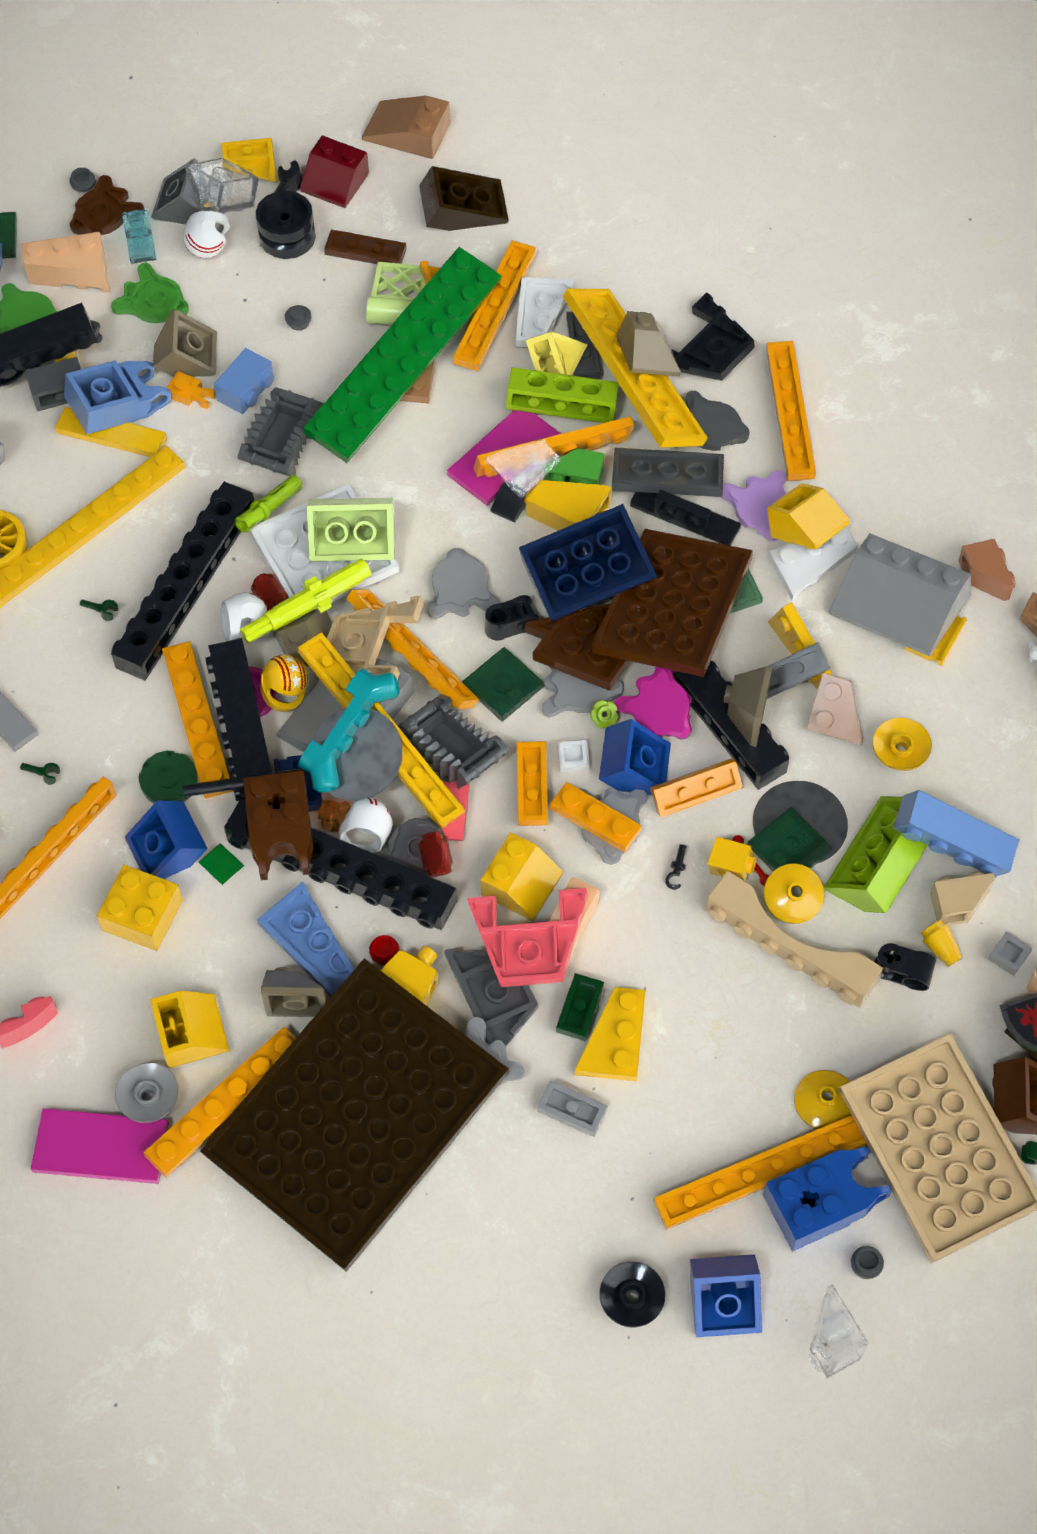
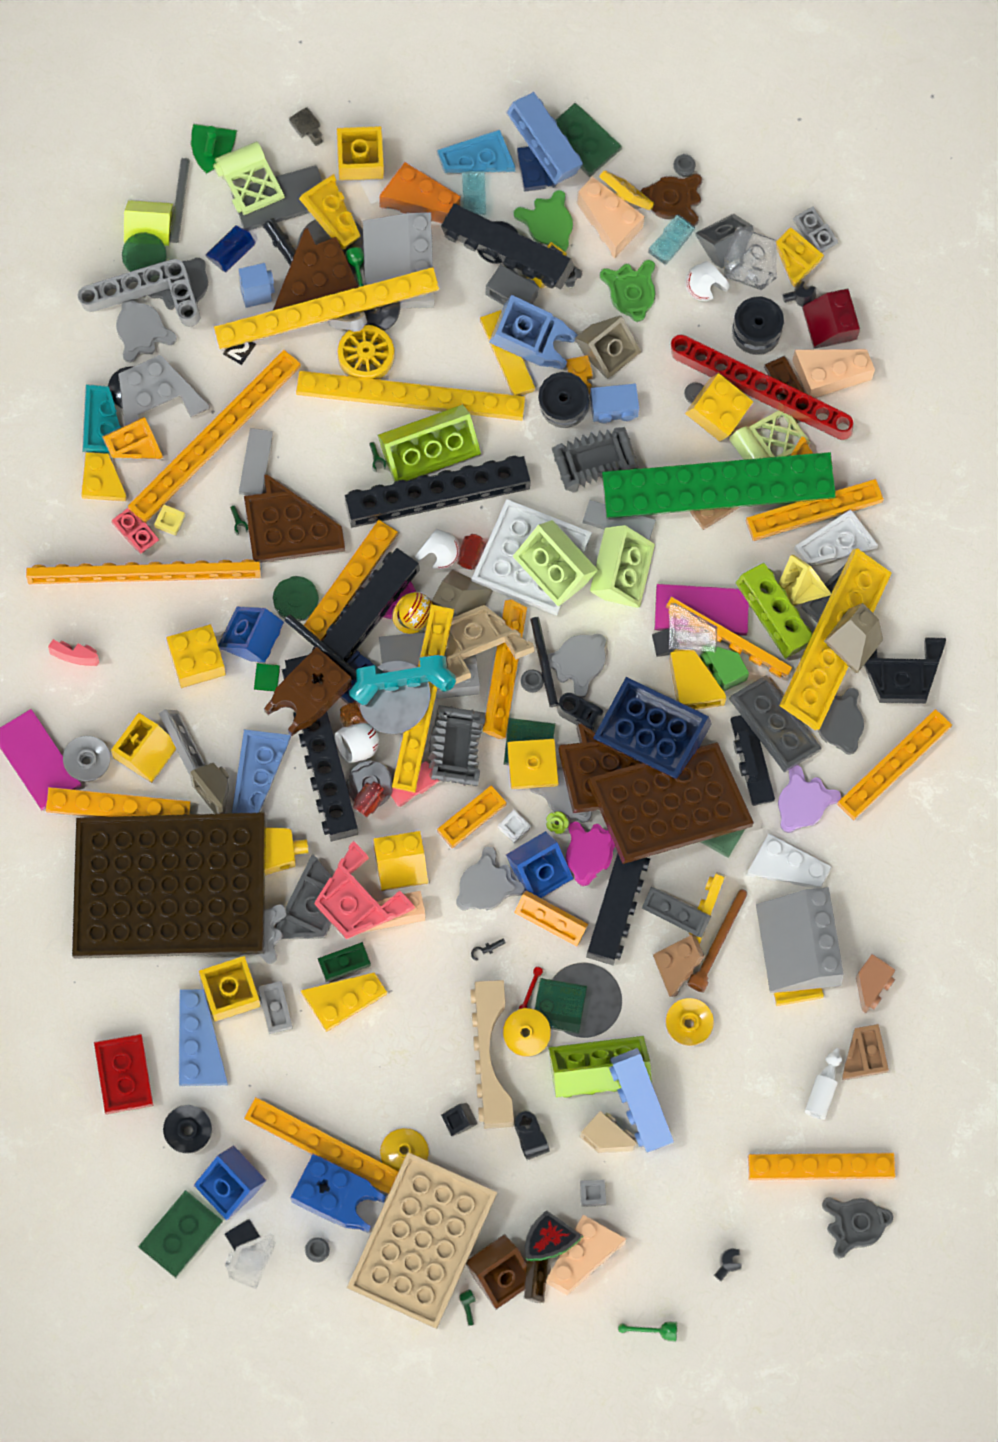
camera: 45 degrees right, 10 degrees up
(61, 227) = (626, 190): none -> yellow plate
(90, 730) = (288, 526): none -> reddish brown wing
(132, 551) = (429, 444): none -> lime slope
(202, 413) = (561, 386): none -> black wheel
(215, 986) = (181, 739): none -> light grey tile
(232, 130) = (814, 230): none -> light grey slope
(261, 509) = (524, 495): lime pin -> none
(316, 595) = (485, 581): neon yellow piece -> none
(331, 303) = (719, 407): none -> yellow brick
(333, 264) = (767, 396): none -> red beam
(373, 452) = (596, 516): none -> light grey tile
(379, 202) = (832, 369): none -> light nougat wedge
(383, 949) = (287, 818): red plate -> none
(398, 474) = (622, 566): none -> yellowish green slope
(410, 124) = (916, 333): medium nougat slope -> none
(438, 612) = (544, 662): none -> black bar
(443, 636) = (532, 681): none -> dark grey plate
(461, 200) = (883, 421): dark brown slope -> none
(516, 1135) = (229, 988): none -> yellow brick
(517, 1316) = (123, 1074): none -> red plate
(528, 691) = (532, 764): none -> yellow plate
(549, 1217) = (198, 1048): none -> medium blue wing
(595, 817) = (478, 873): light orange plate -> none
(731, 857) = (516, 977): yellow brick -> none
(741, 1392) = (180, 1234): none -> clear green tile
(748, 701) = (628, 905): dark tan slope -> none
(792, 1329) = (242, 1234): none -> black sticker
(806, 517) = (808, 838): yellow slope -> none
(832, 1023) = (459, 1119): none -> black slope
(866, 708) = (699, 980): none -> dark orange piece
(942, 943) = (566, 1146): yellow cone -> none

